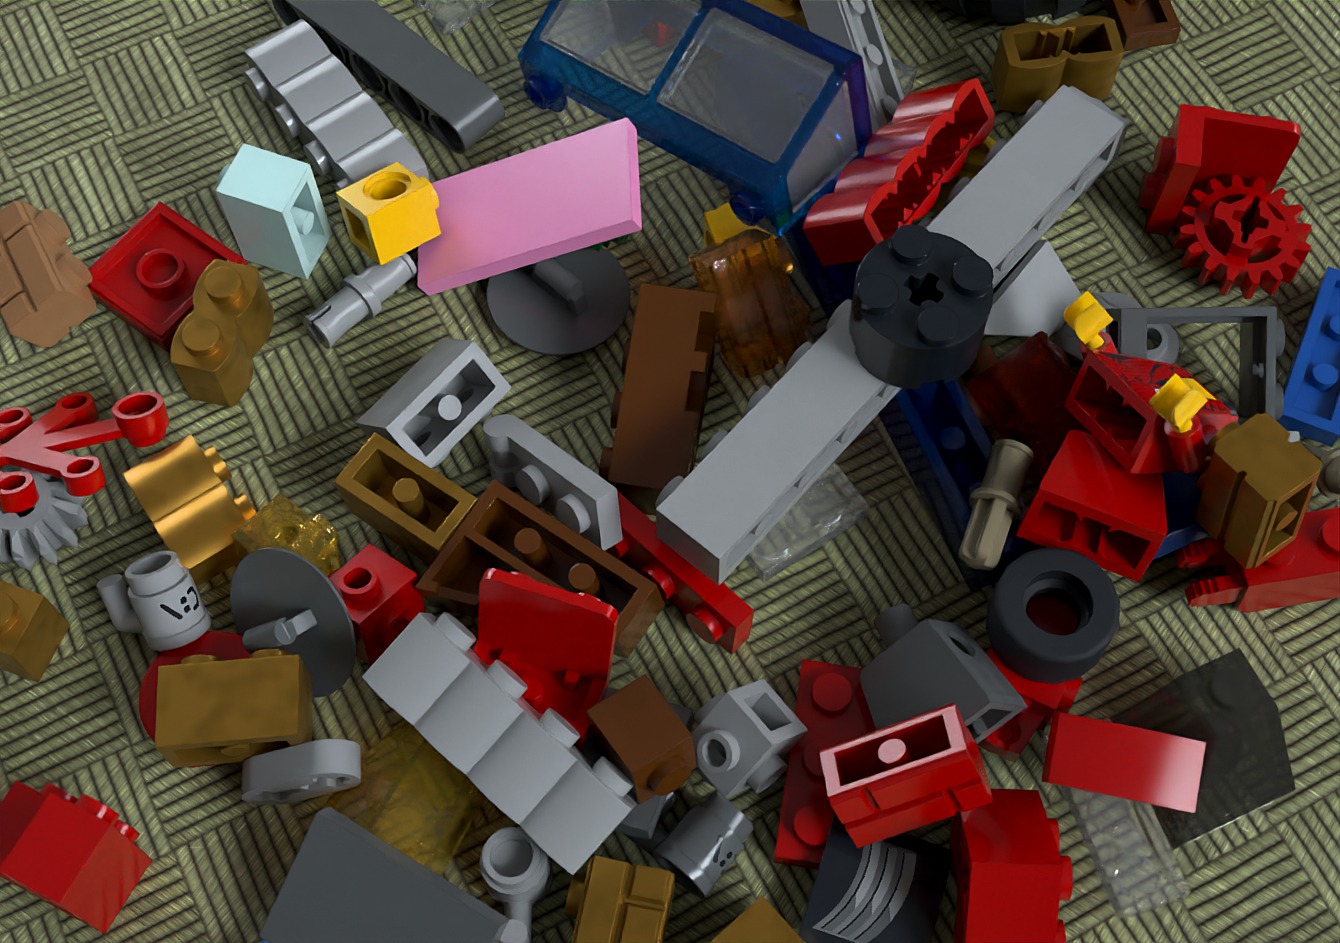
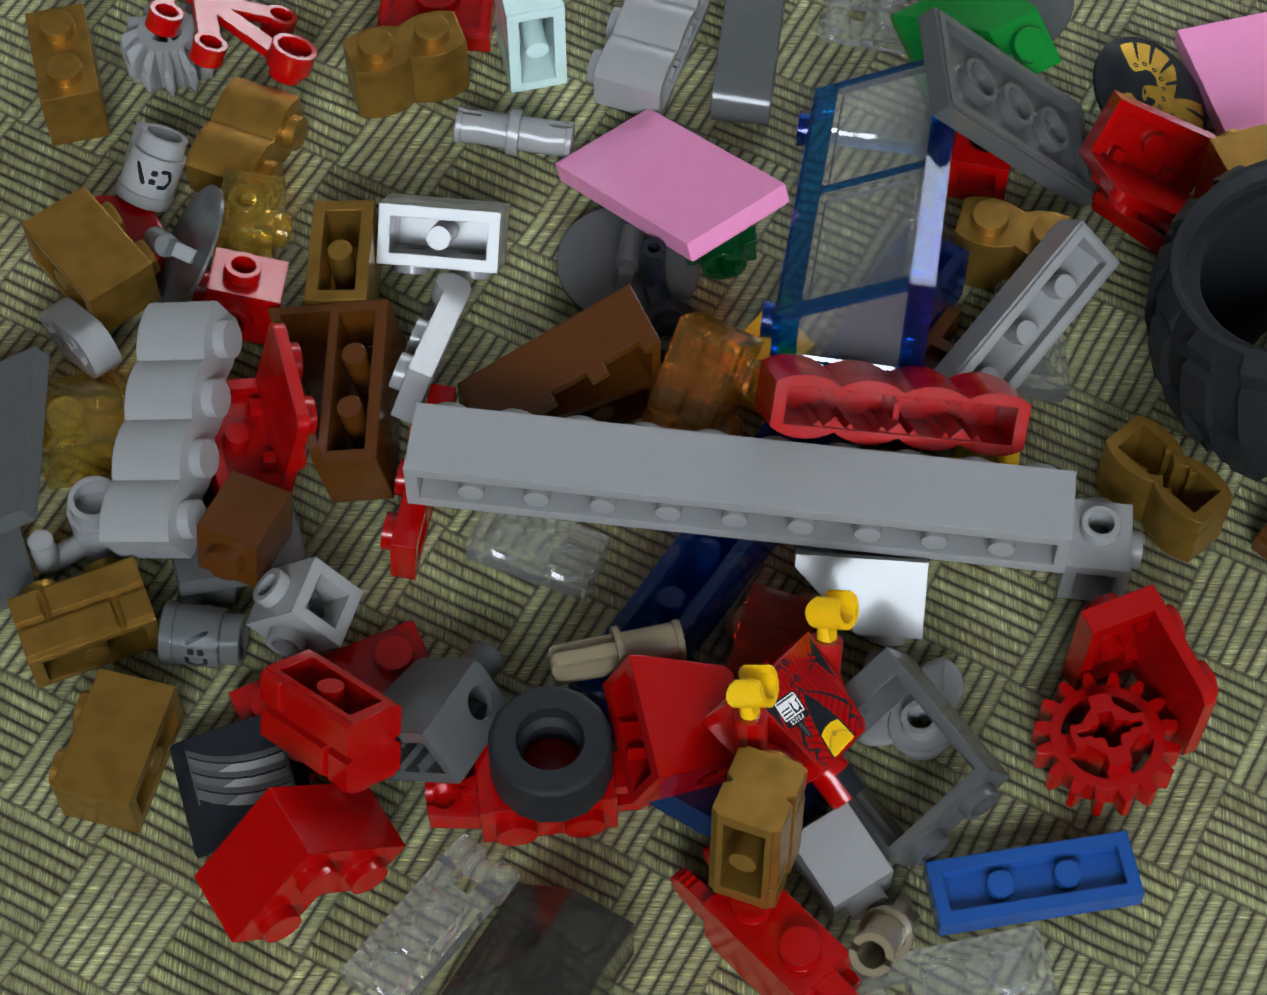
camera: 55 degrees right, 5 degrees down
(390, 212) = (591, 96): yellow brick -> none
(620, 290) = (661, 309): none -> black plate
(920, 308) = (720, 467): black brick -> none
(1123, 761) = (463, 887): red slope -> none

